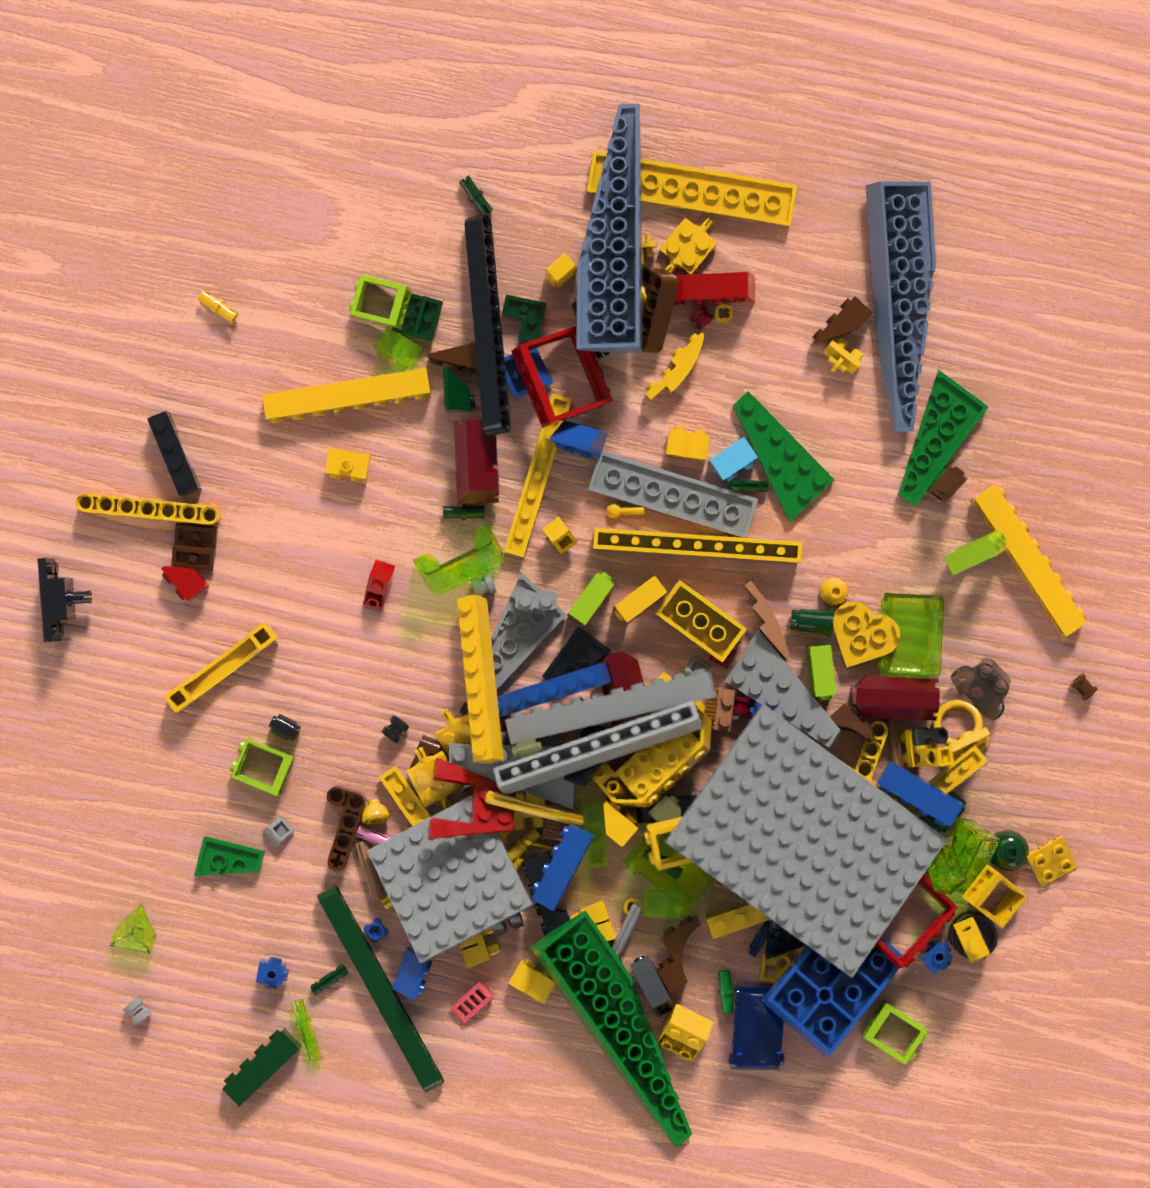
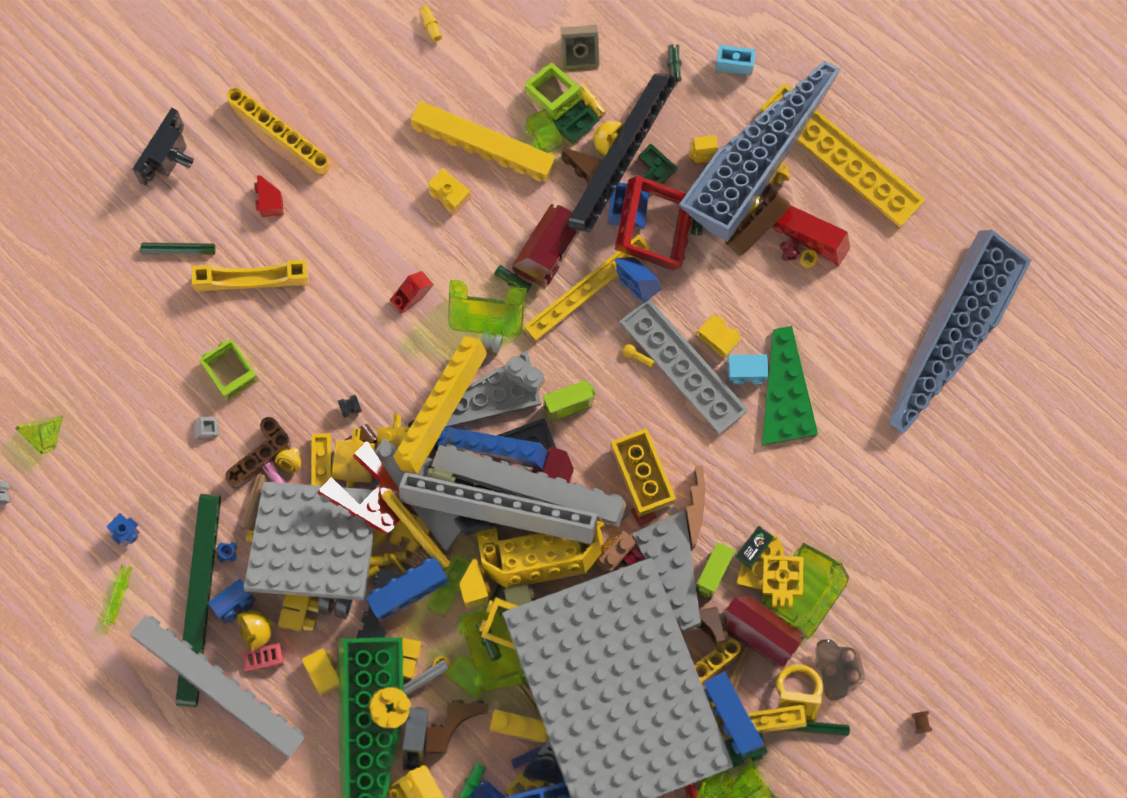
camera: 25 degrees right, 15 degrees down
(135, 682) = (177, 248): none -> dark green axle
(173, 453) = (321, 117): black arch -> none
(194, 546) = (293, 179): reddish brown slope -> none
(225, 857) = (152, 421): green wing -> none
(261, 1066) = (62, 599): dark green brick -> none
(284, 727) = (266, 351): black brick -> none
(329, 979) = (163, 566): dark green axle -> none
(375, 238) = (579, 47): none -> dark tan slope
(422, 287) = (591, 101): none -> yellow pin
(449, 983) = (255, 628): none -> yellow cylinder
(452, 1056) = (216, 686): none -> light grey brick
(456, 394) = (564, 188): dark green slope -> none
(461, 316) = (606, 135): none -> yellow cylinder
(533, 158) = (735, 60): none -> medium azure brick
(559, 535) = (575, 340): yellow brick -> none
(624, 986) = (378, 709): none -> yellow plate
(639, 599) = (605, 425): yellow window -> none
(683, 361) = (754, 274): yellow slope -> none
(688, 246) = (813, 193): yellow plate -> none
(697, 545) = (677, 414): yellow brick -> none
(748, 485) = (747, 396): dark green axle -> none
(813, 621) = (731, 529): dark green plant -> none
(833, 592) = (764, 518): yellow brick -> none
(841, 358) = (880, 345): yellow hips -> none
(843, 625) = (754, 547): none -> tile
(850, 319) = (901, 321): reddish brown slope -> none
(895, 654) = (783, 594): none -> yellow piece
(920, 749) = (757, 687): yellow hips -> none
(943, 428) = (931, 447): green wing -> none
(947, 483) = (907, 487): reddish brown slope -> none
(976, 552) = (897, 554): lime window -> none
(1004, 744) = (823, 728): none -> dark green axle
(1029, 561) = (937, 594): yellow brick -> none

